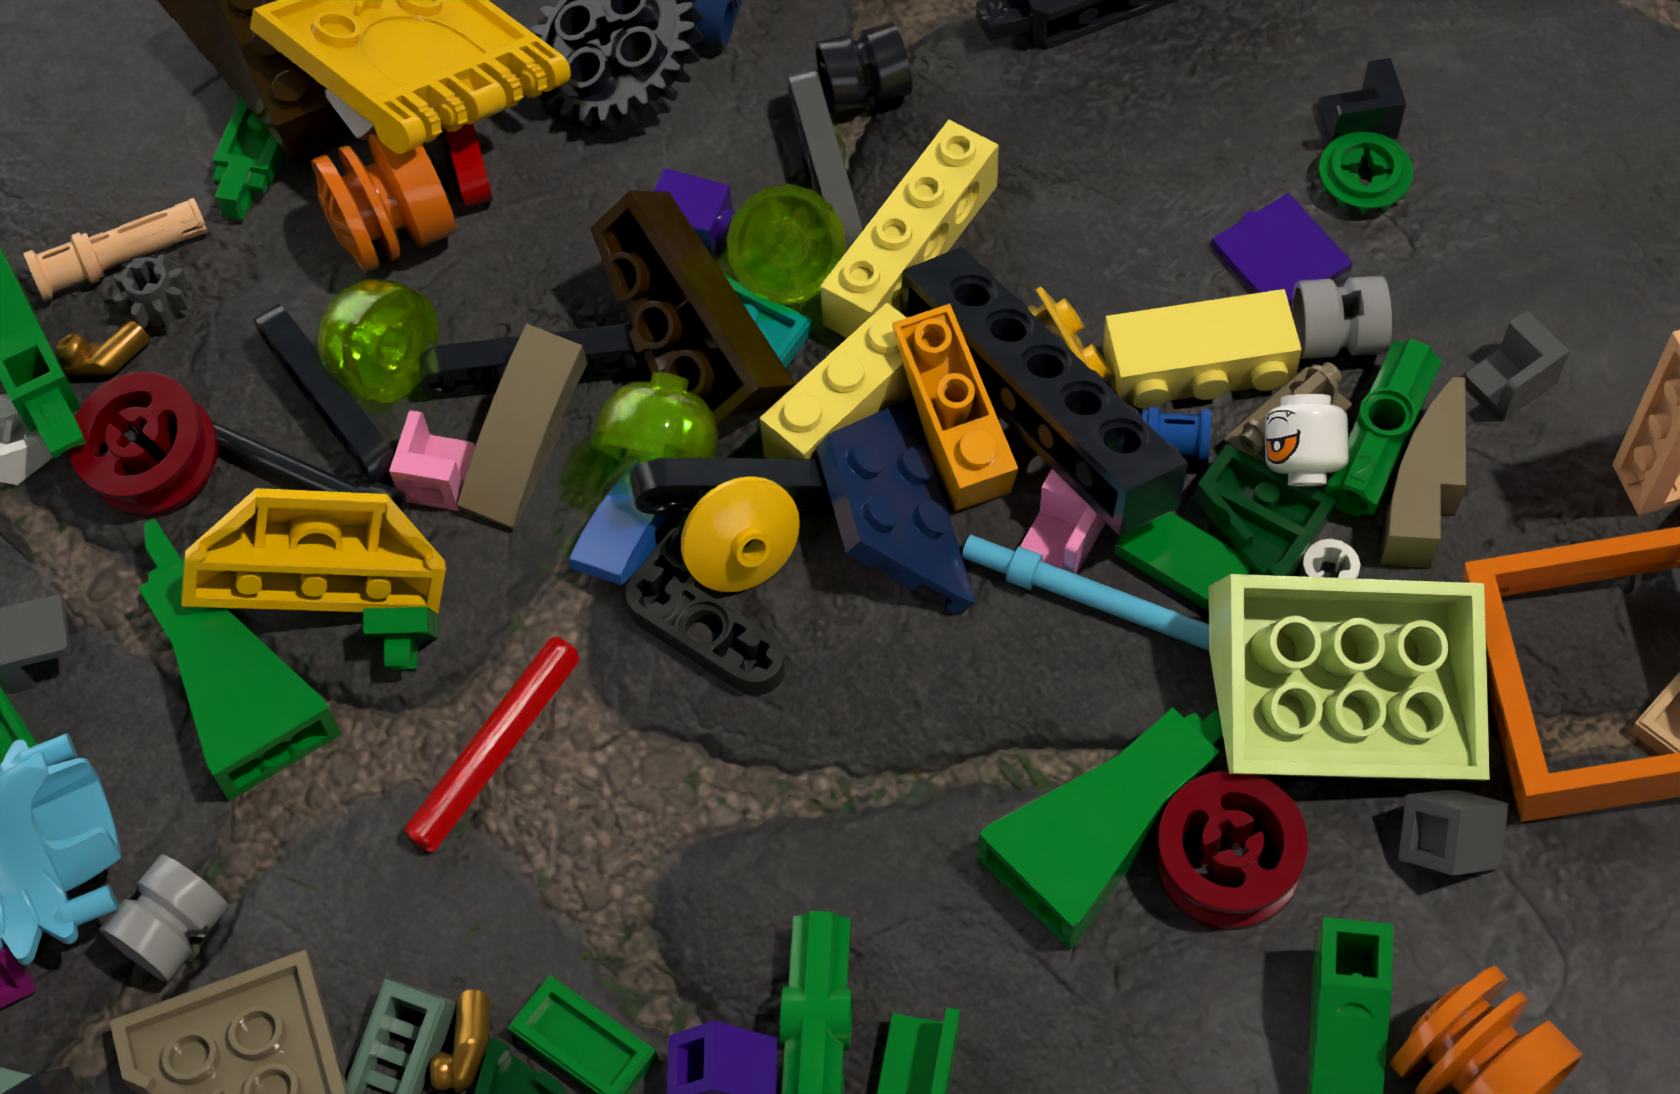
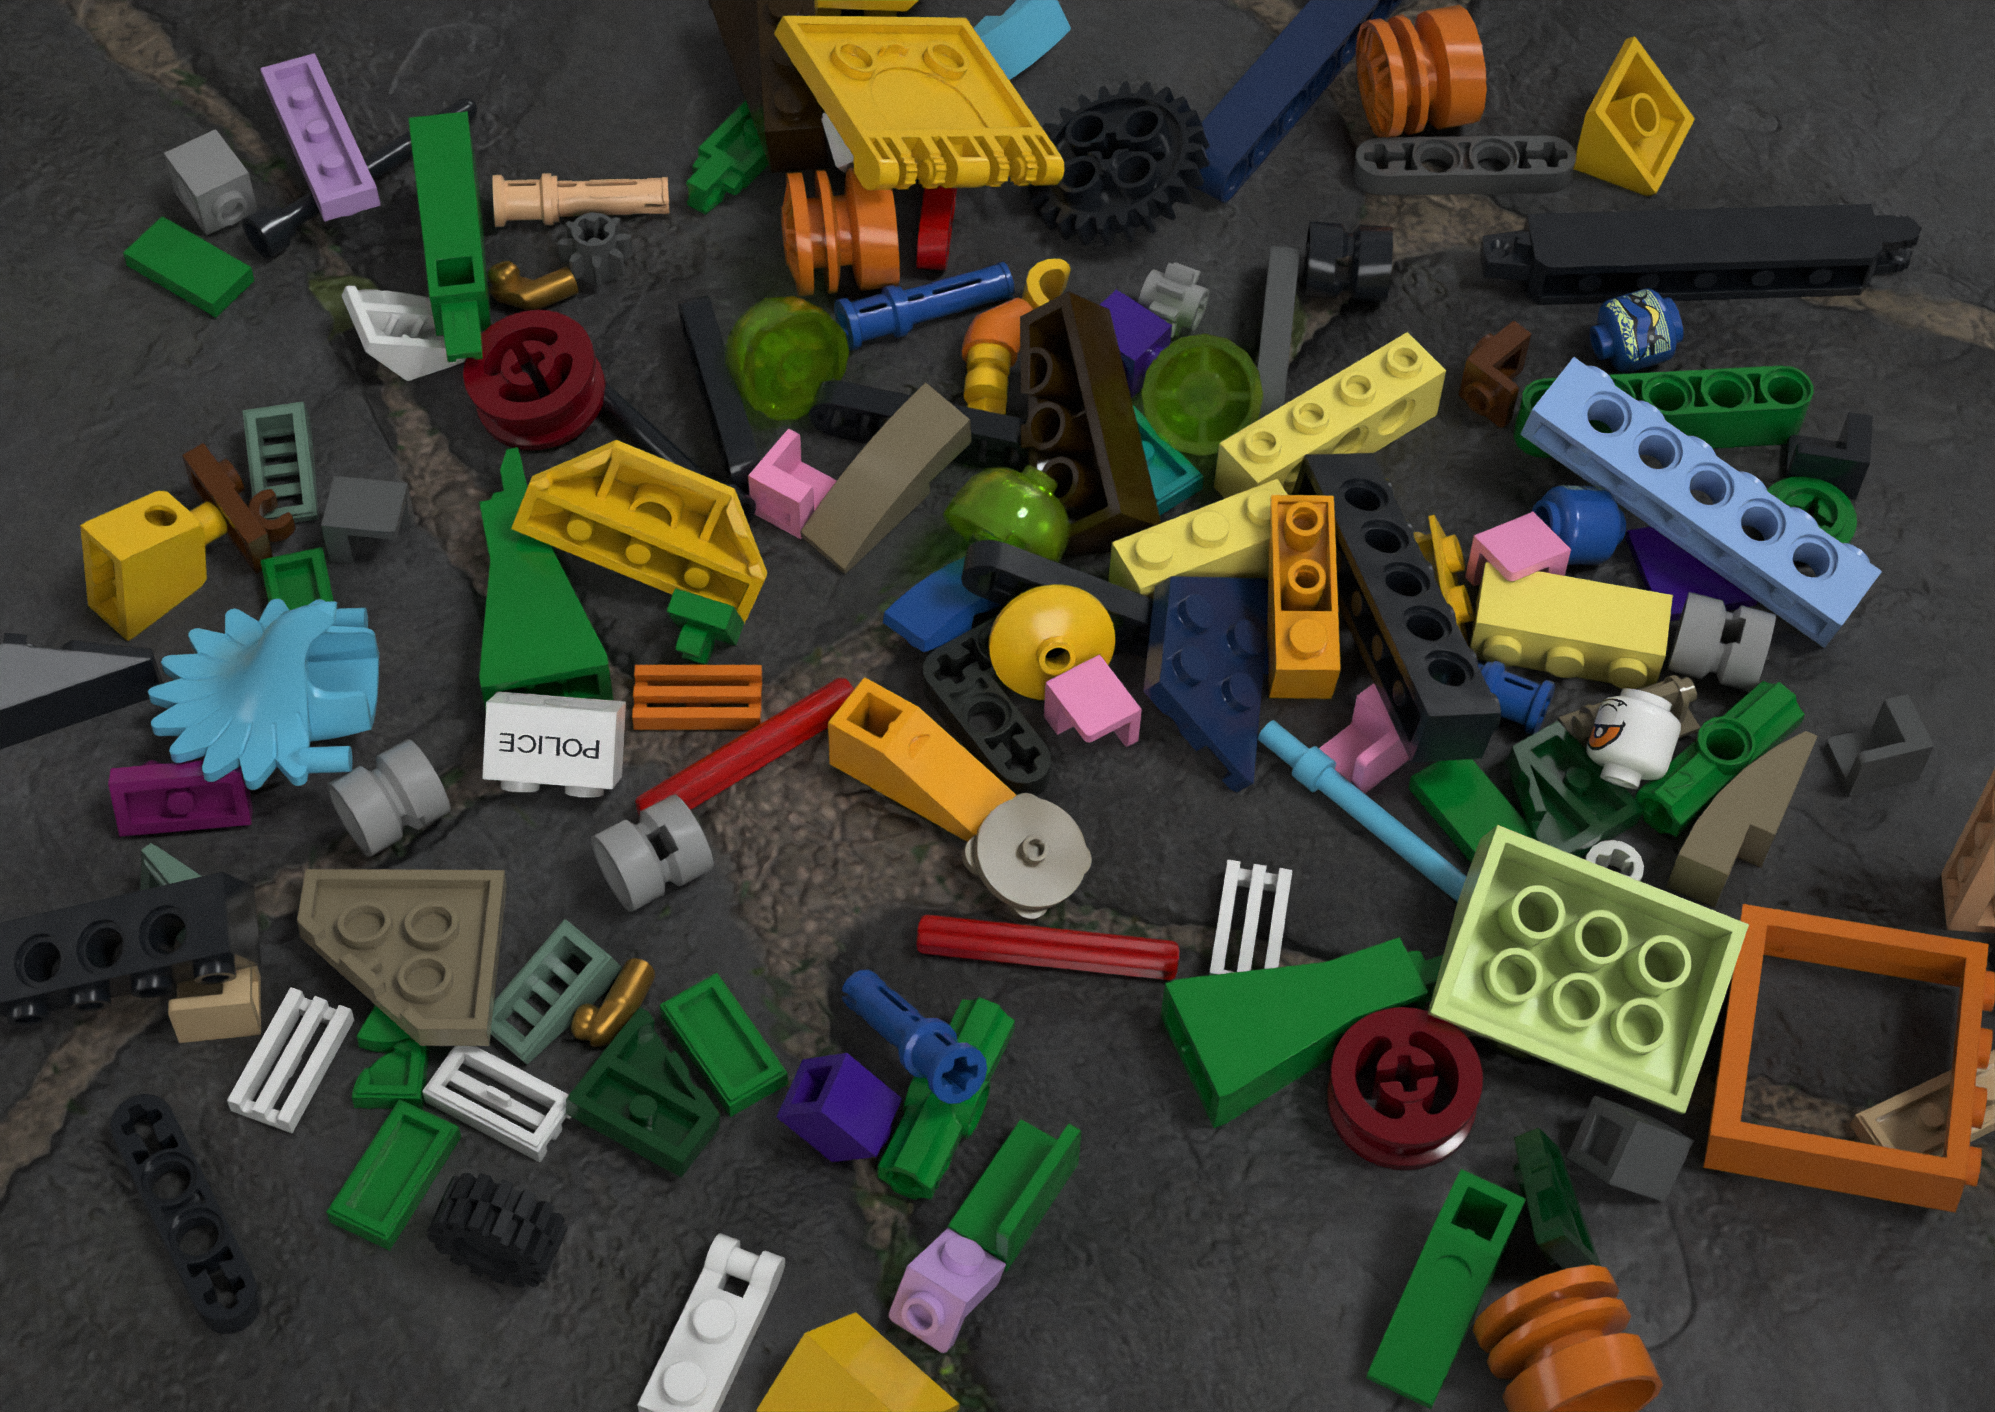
camera: 15 degrees right, 5 degrees down
(304, 804) = (554, 743): none -> white brick
(420, 694) = (698, 688): none -> orange tile
(426, 896) = (631, 862): none -> light grey wheel
(464, 255) = (899, 309): none -> blue pin
(569, 248) = (994, 337): none -> yellow piece
(664, 700) = (912, 760): none -> light orange slope
(718, 155) = (1175, 296): none -> light grey gear
(782, 981) = (925, 1045): none -> blue pin
(797, 749) = (1028, 855): none -> piece
(800, 579) = (1092, 703): none -> bright pink panel
(849, 832) = (1048, 947): none -> red axle
(1016, 695) = (1257, 881): none -> white tile
(1031, 137) = (1490, 371): none -> reddish brown bracket
(1129, 294) = (1518, 550): none -> bright pink panel
(1148, 46) = (1637, 331): none -> blue head
(1168, 250) = (1584, 520): none -> blue head
(1199, 115) = (1713, 404): none -> green beam
(1243, 202) = (1707, 532): none -> light blue brick
(1422, 928) = (1552, 1202): none -> dark green wing

